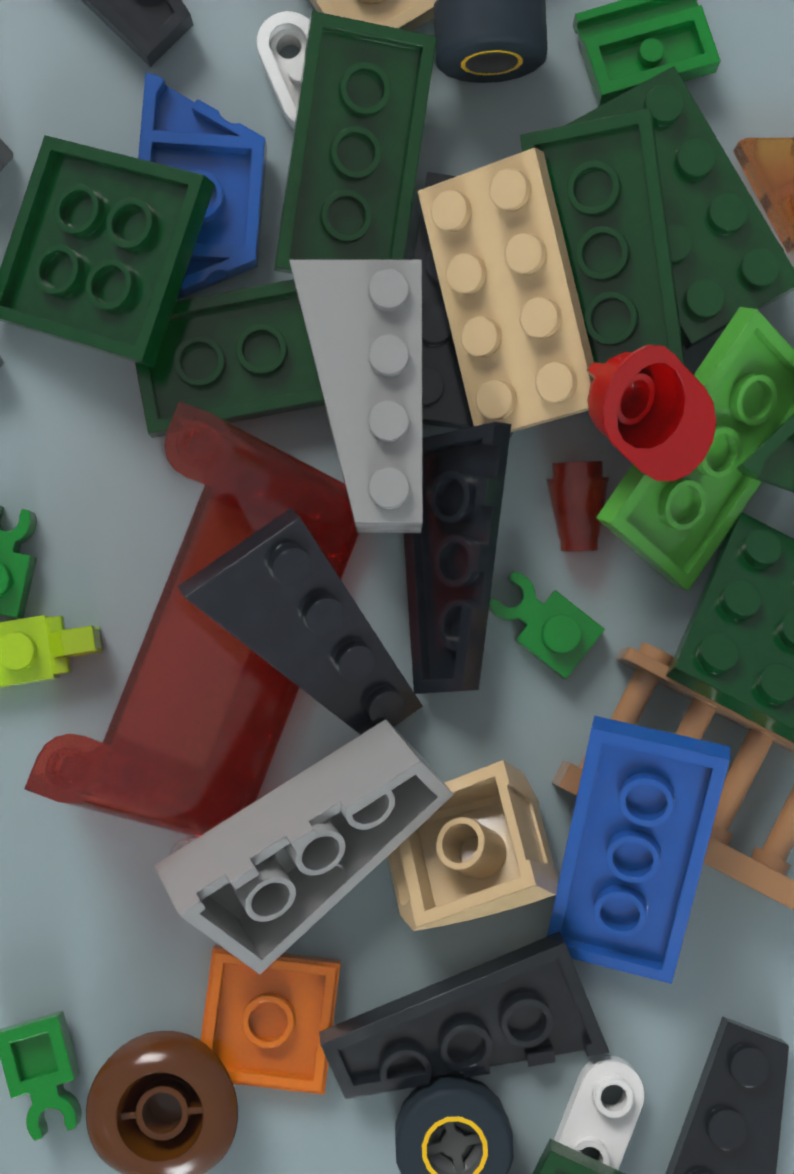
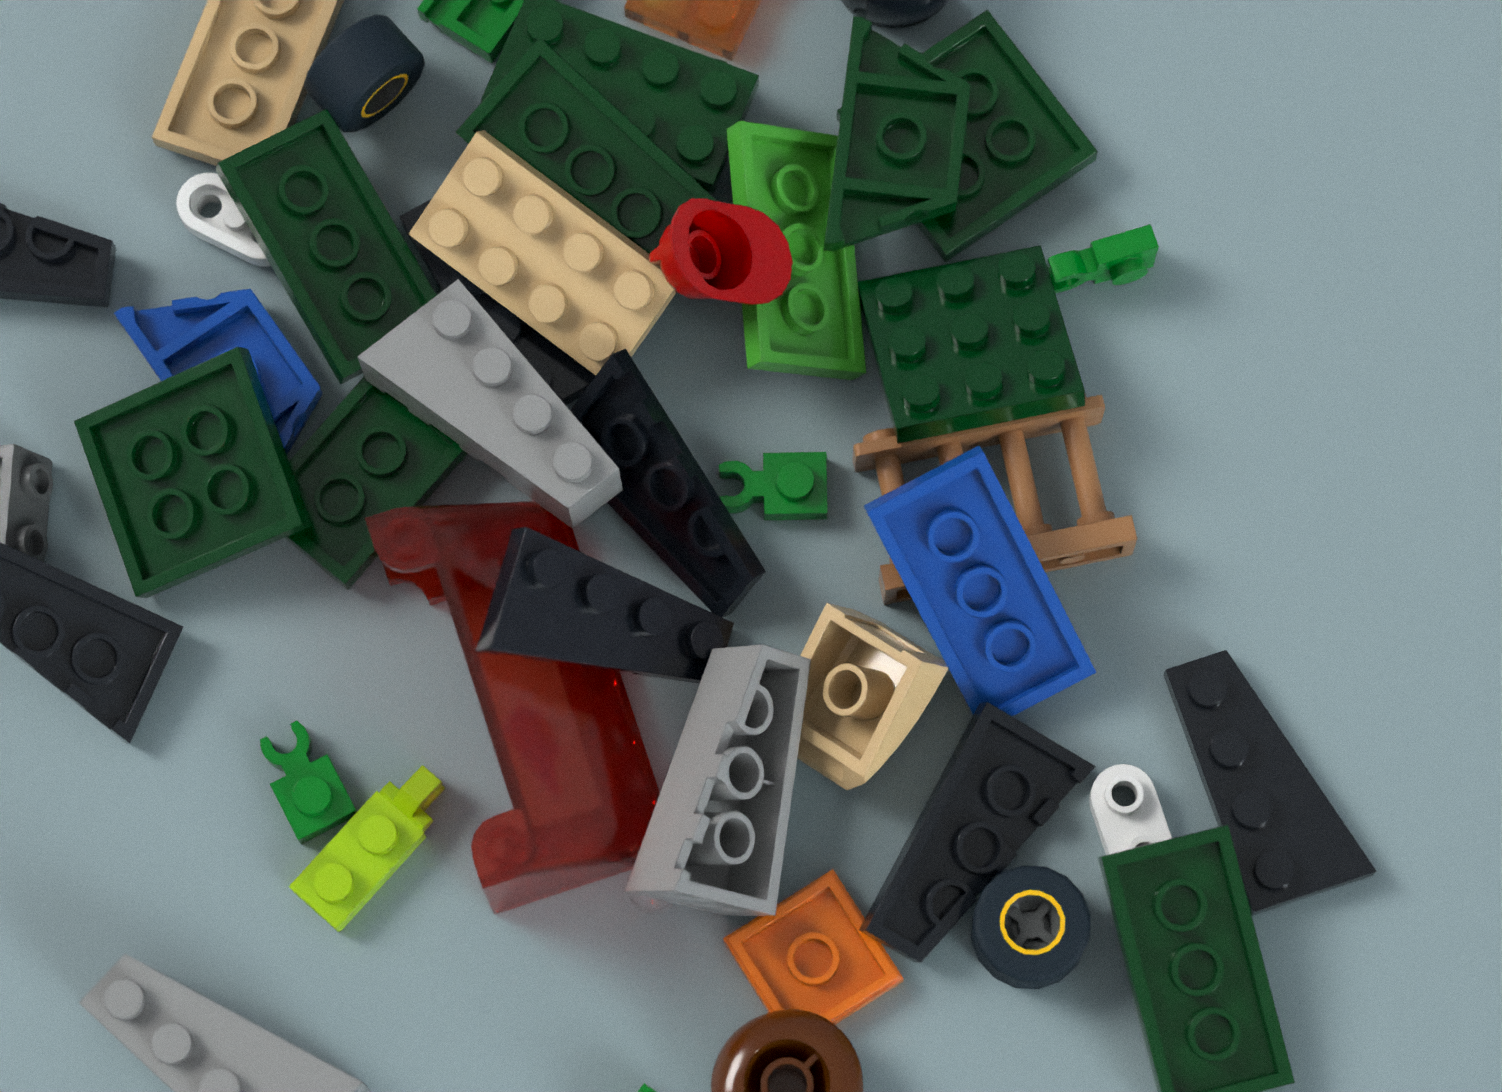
camera: 35 degrees left, 10 degrees down
(576, 499) = (722, 371): clear red cone -> none

